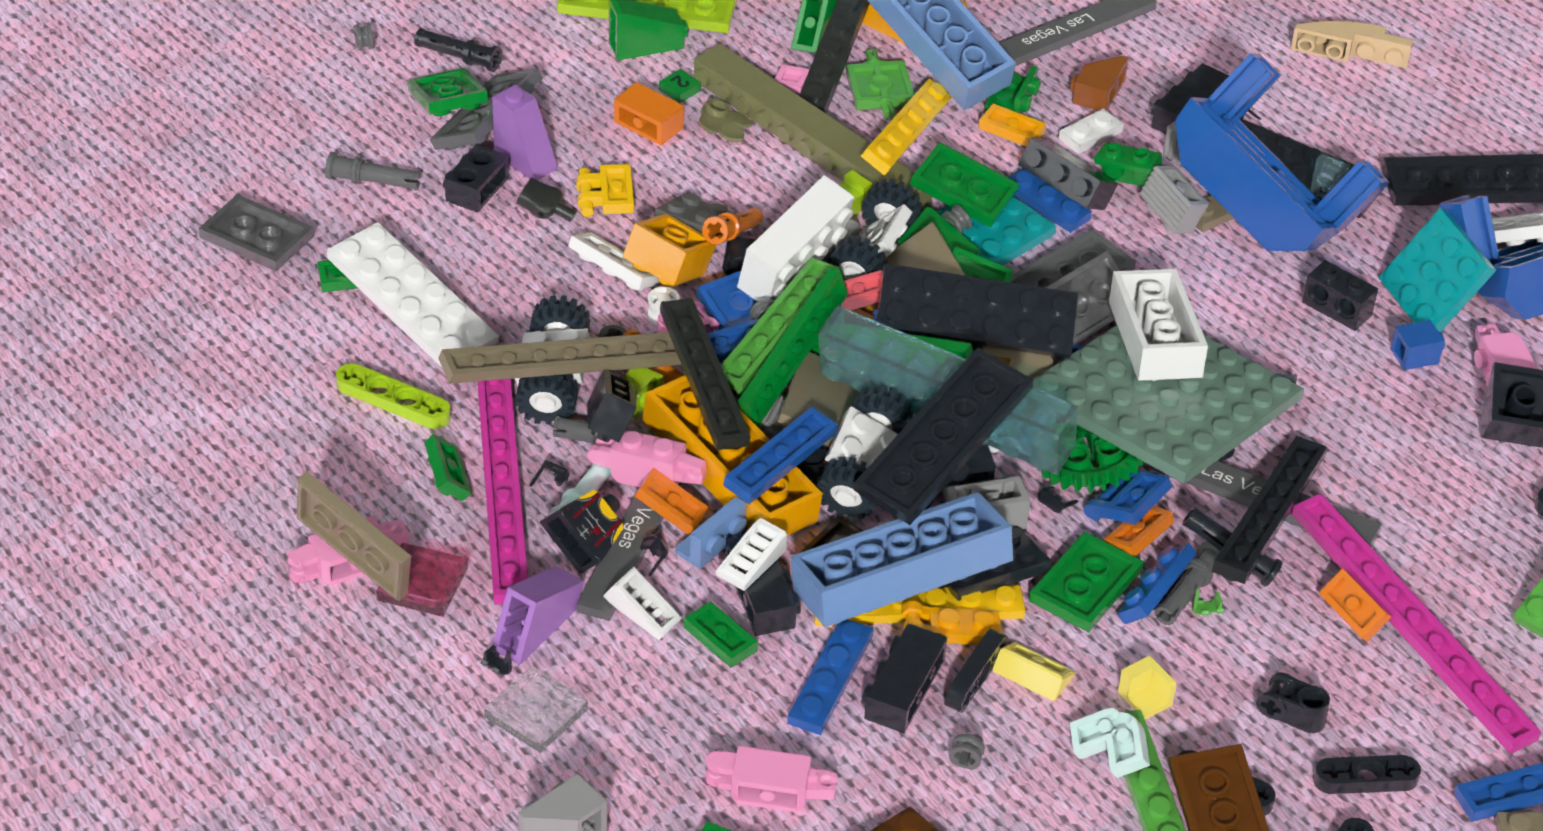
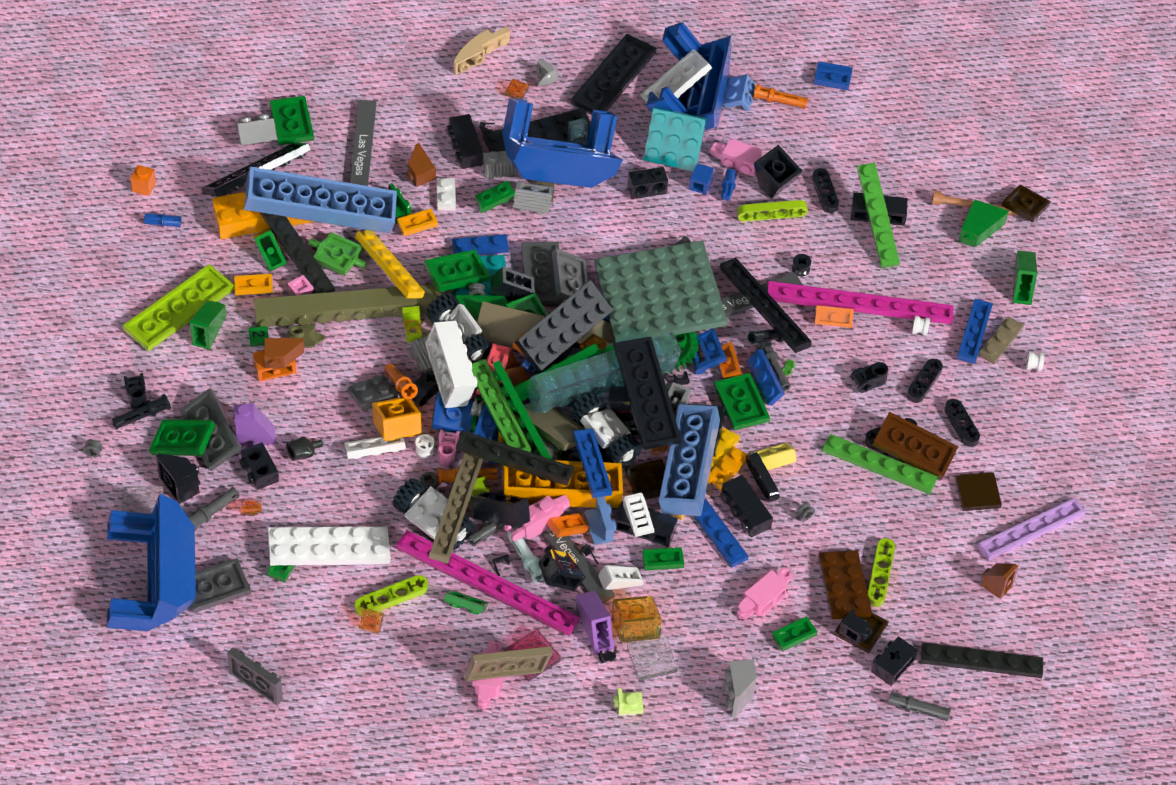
camera: 55 degrees left, 10 degrees up
(133, 326) = (255, 676): none -> flat silver plate
(218, 157) = (169, 565): none -> blue wedge
(320, 115) = (140, 498): none -> clear plate
(330, 393) = (371, 620): none -> clear orange plate
(380, 115) = (178, 476): none -> black slope
(405, 203) = (251, 508): none -> clear orange plate
(433, 722) = (628, 702): none -> yellowish green bracket
(487, 25) = (136, 390): none -> black piece
(575, 648) = (636, 619): none -> clear yellow brick
(615, 192) = (317, 411): yellow plate -> none
(656, 96) = (282, 351): none -> dark orange slope
(751, 41) = (253, 284): none -> light orange plate
(1001, 240) = (511, 284): none -> black brick
(1068, 174) = (477, 225): brick -> none
(1115, 732) = (844, 449): light aqua plate -> none
(1147, 687) = (821, 422): light yellow panel -> none
(1158, 324) = (627, 264): white brick -> none
(1334, 106) = (517, 89): none -> clear orange plate
(1392, 121) = (546, 72): none -> light grey plate
(1402, 524) = (801, 265): none -> black wheel
(1444, 378) = (728, 184): none -> blue axle
(1458, 714) = (921, 325): none -> white wheel
(1489, 463) = (797, 207): none -> lime beam

